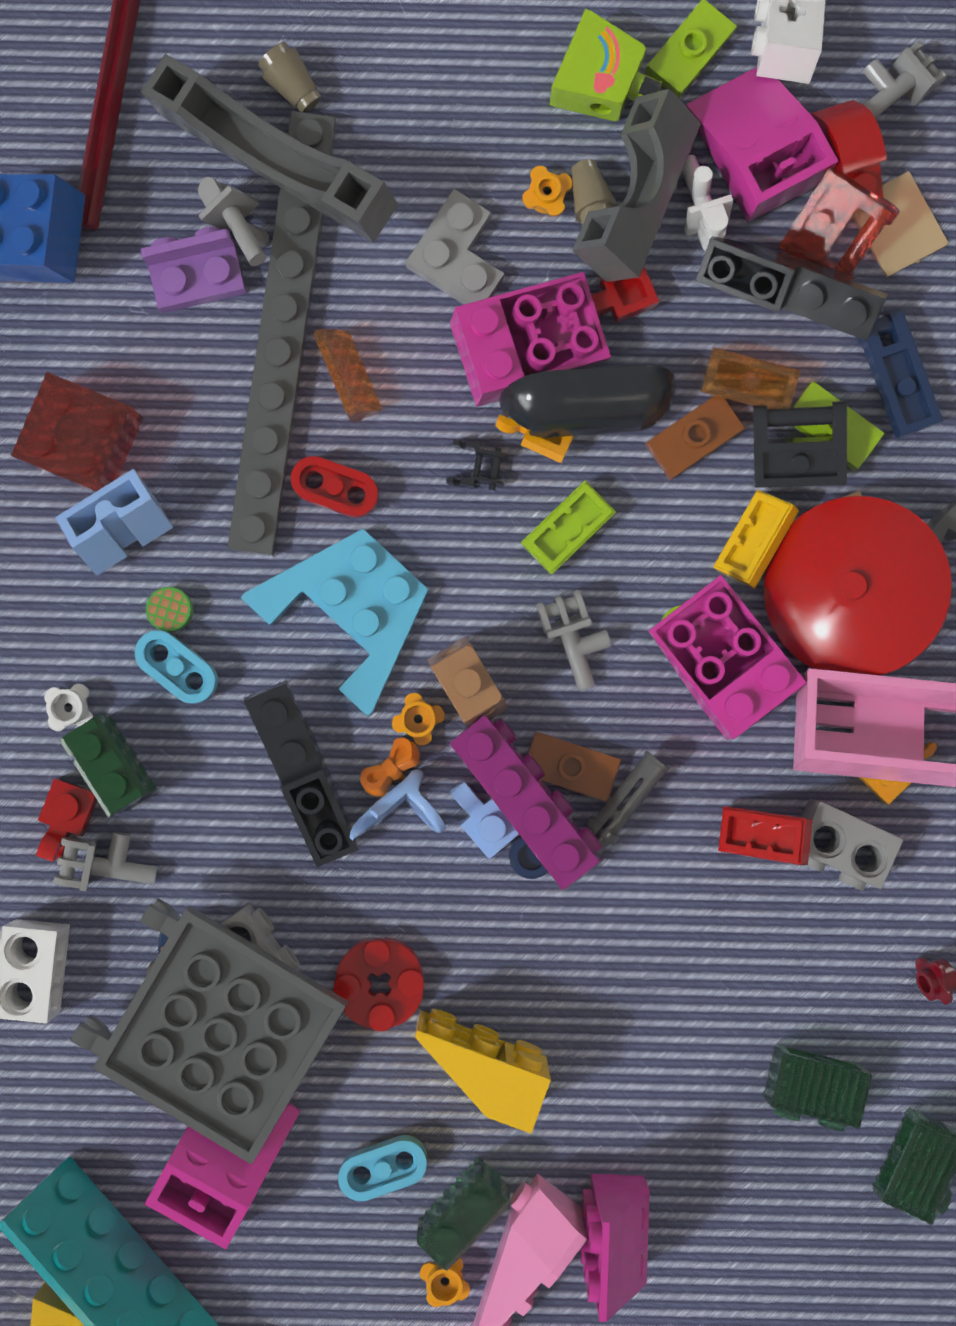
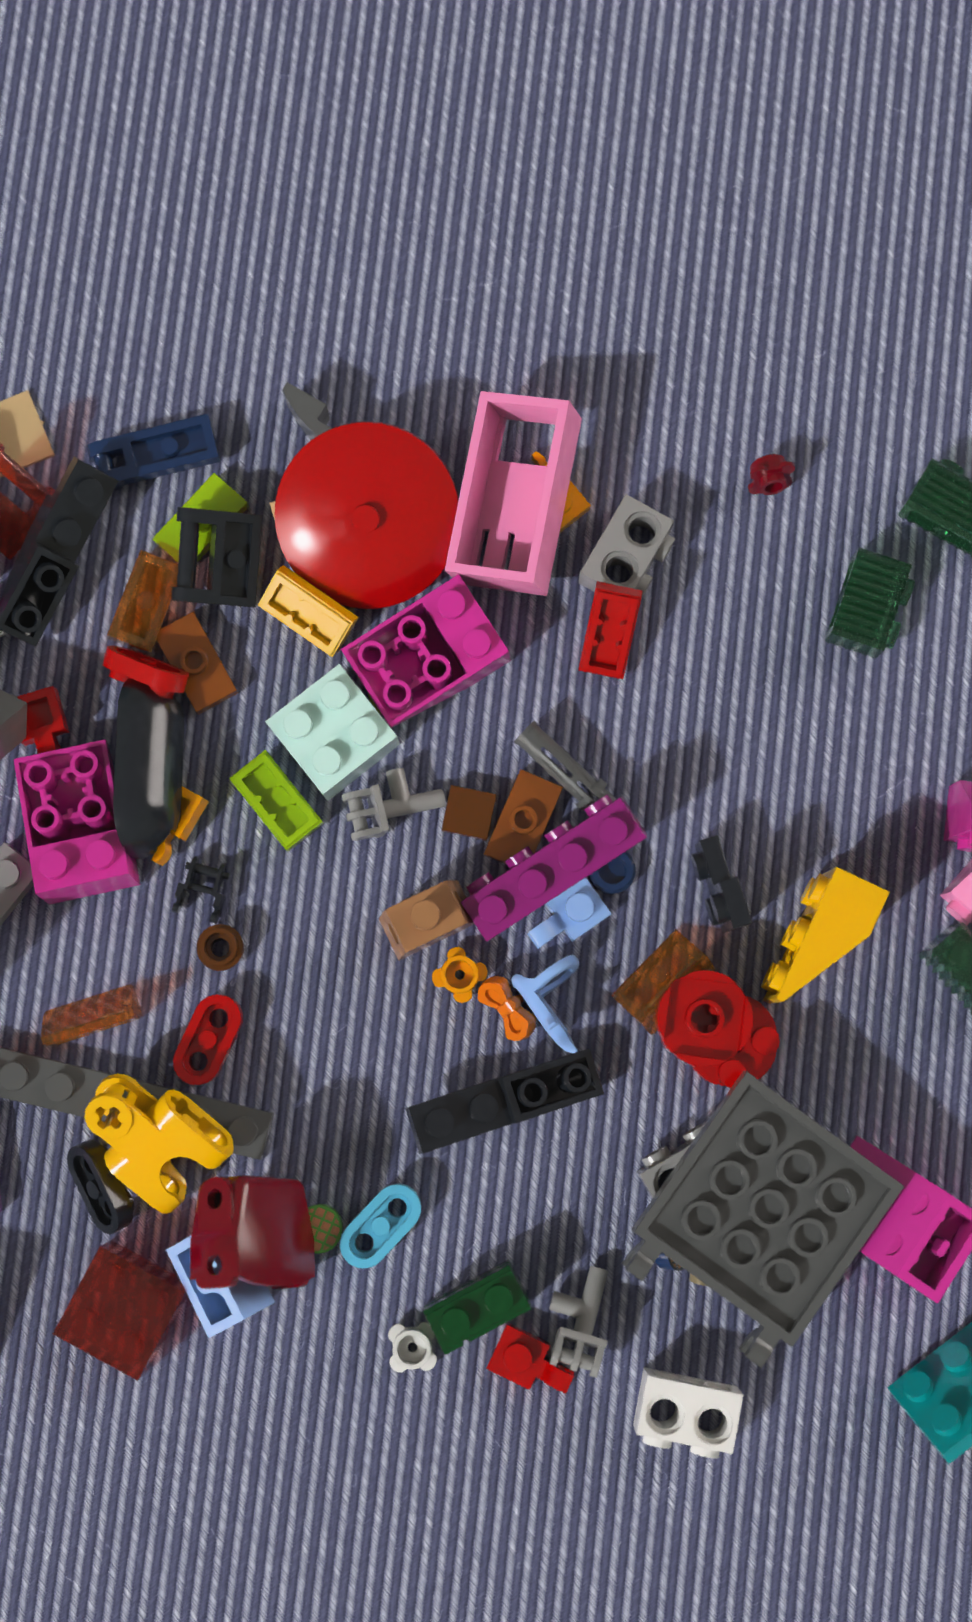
camera: 80 degrees left, 5 degrees down
(155, 550) = (256, 1230): none -> dark red piece
(188, 401) = (101, 1191): none -> black plate
(239, 442) = (150, 1133): none -> yellow piece
(363, 594) = (322, 1021): medium azure wing -> none
(376, 977) = (724, 1000): none -> red plate
(385, 1170) = (925, 1051): medium azure plate -> none
(417, 476) = (207, 940): none -> reddish brown plate
(429, 914) = (647, 983): none -> clear orange slope
(513, 971) = (727, 900): none -> black plate
(574, 713) = (468, 812): none -> reddish brown tile
(639, 575) = (333, 732): none -> light aqua brick
(681, 394) = (158, 675): none -> red plate

